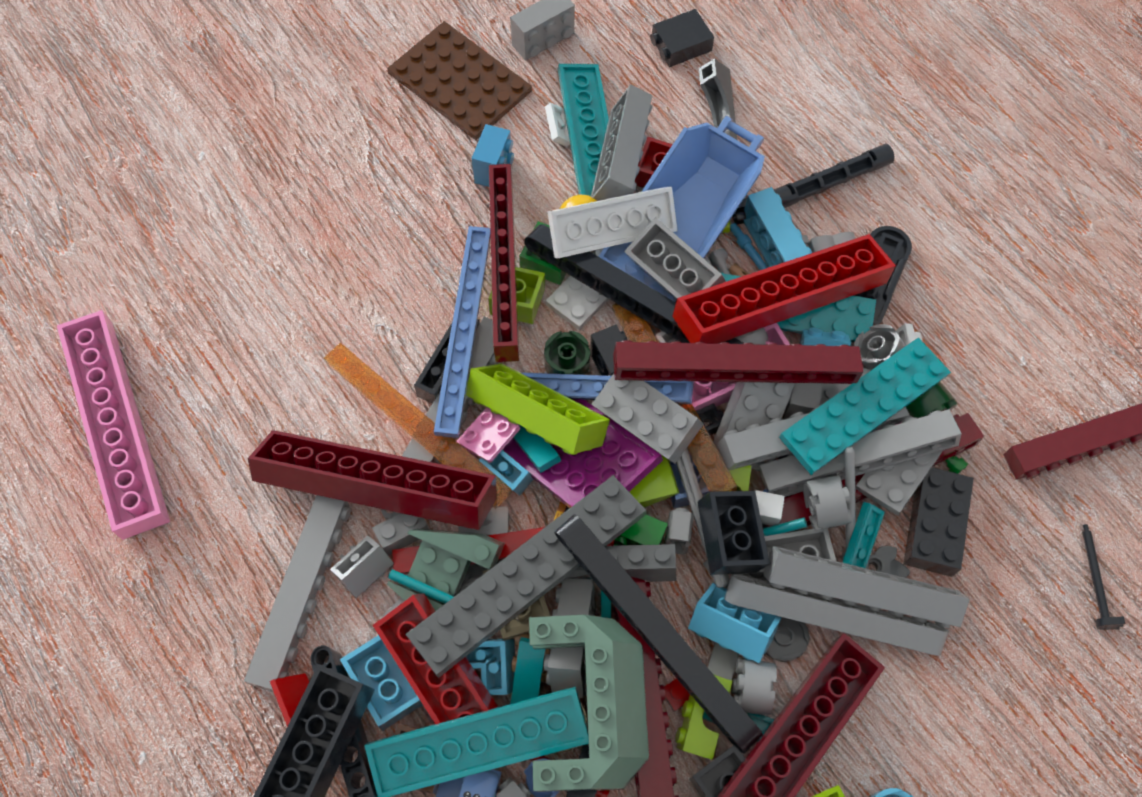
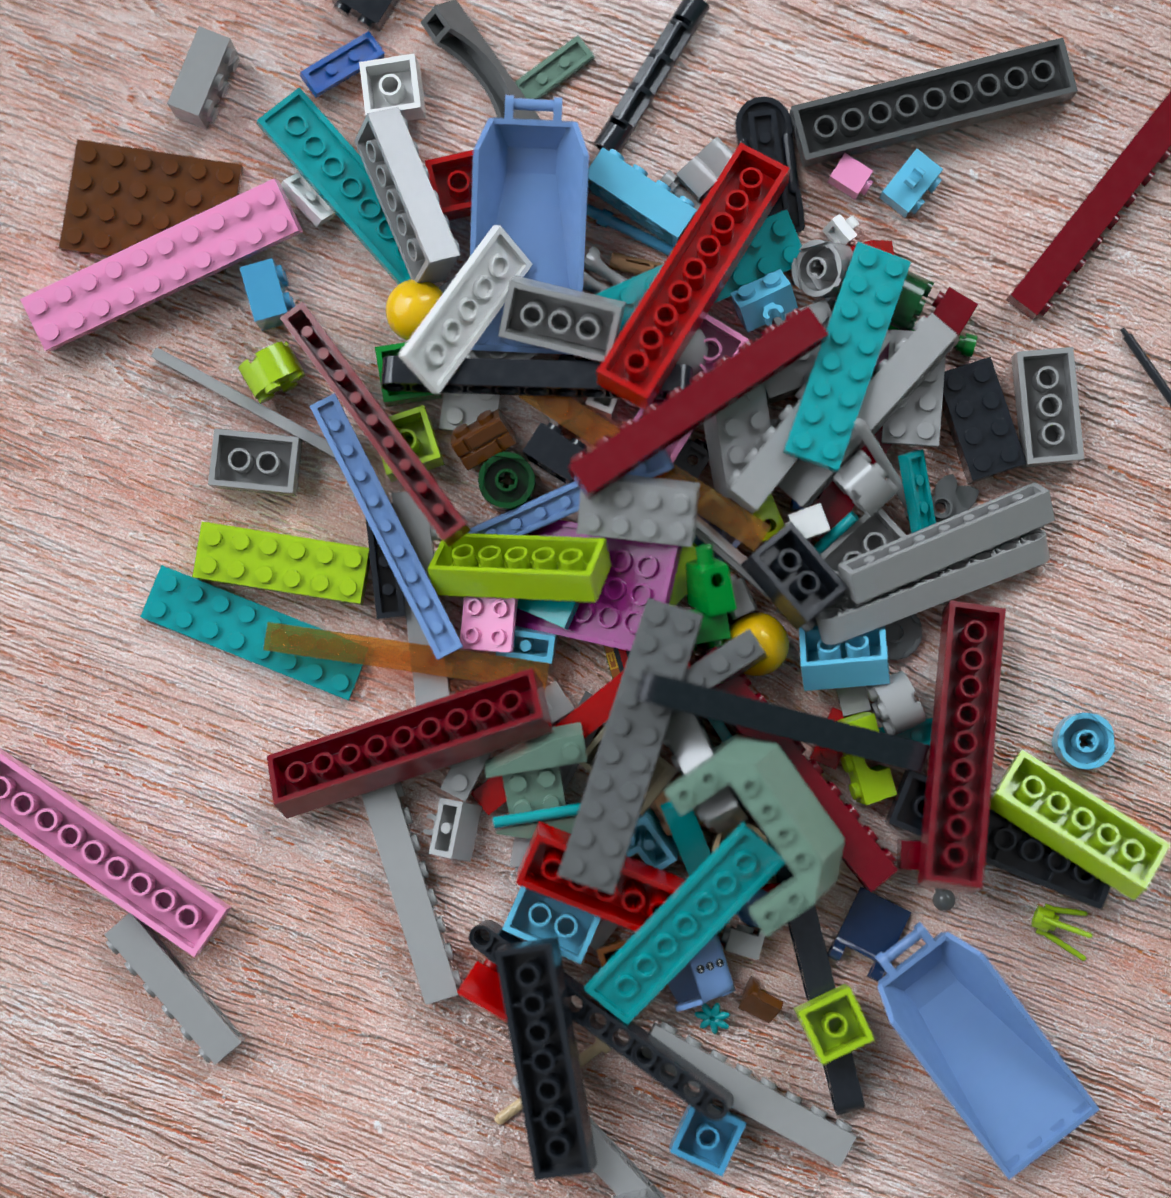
camera: 30 degrees left, 20 degrees up
(84, 553) = (174, 987): none -> light grey brick
(315, 336) = (239, 629): none -> teal plate
(379, 318) = (282, 563): none -> lime brick
(410, 247) = (255, 462): none -> light grey brick
(416, 720) = (602, 933): none -> white sticker
(429, 208) = (242, 401): none -> light grey tile
(439, 103) = (161, 265): none -> bright pink brick
(461, 200) = (271, 371): none -> lime brick
(566, 319) = (482, 438): none -> reddish brown brick
(633, 66) = (341, 64): none -> blue hinge
(664, 88) = (393, 84): none -> white brick
(666, 506) = (709, 583): none -> green torso
(687, 578) = (771, 637): none -> yellow piece
(775, 143) = (555, 69): none -> sand green tile
(933, 309) = (851, 177): none -> bright pink brick
(975, 337) = (911, 184): none -> medium azure brick
(999, 542) = (1047, 406): none -> light grey brick
(1022, 295) = (933, 102): none -> dark grey brick

